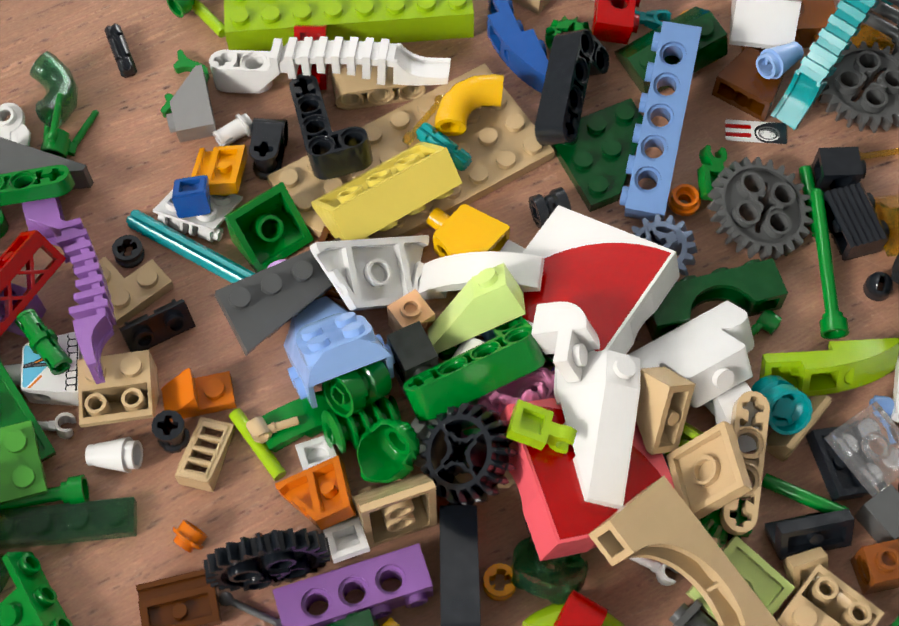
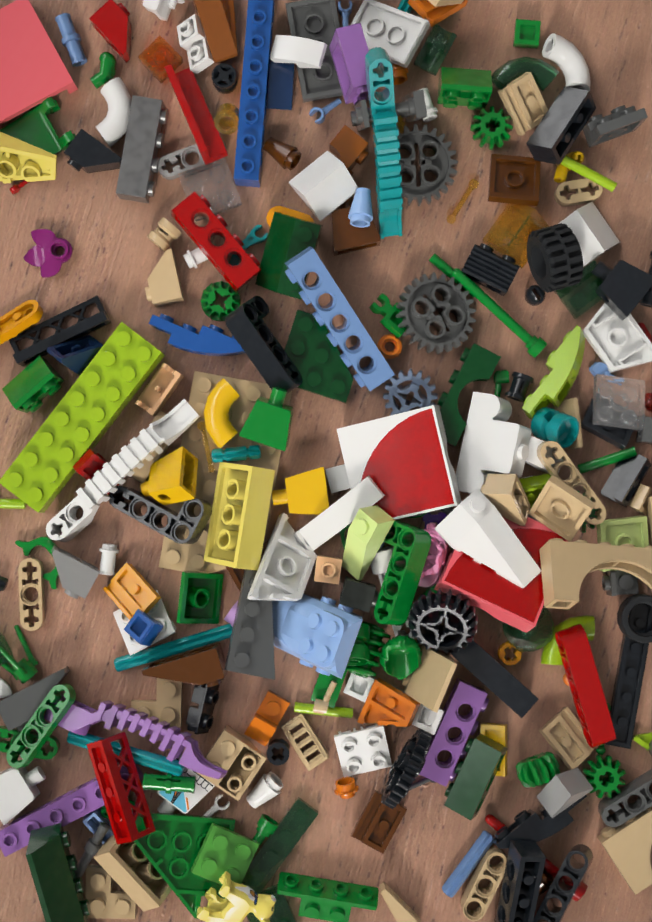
camera: 50 degrees left, 25 degrees up
(52, 302) = (140, 756): none -> teal axle
(119, 248) = (145, 682): black bush -> none
(141, 86) = (23, 601): none -> tan beam
(192, 268) = (194, 667): none -> reddish brown slope
(246, 509) = (363, 750): none -> white hinge
(268, 145) = (135, 545): black piece -> none
(351, 107) = (172, 478): none -> yellow torso
(455, 48) = (159, 389): none -> light nougat hinge
(505, 141) = (270, 421): none -> green torso
(535, 428) = (468, 582): lime plate -> none
(543, 206) = (327, 427): black wheel -> none
(567, 334) = (434, 512): white brick -> none
(755, 131) = (382, 257): sticker -> none
(780, 342) = (519, 387): none -> black bush
(837, 167) = (452, 242): black brick -> none

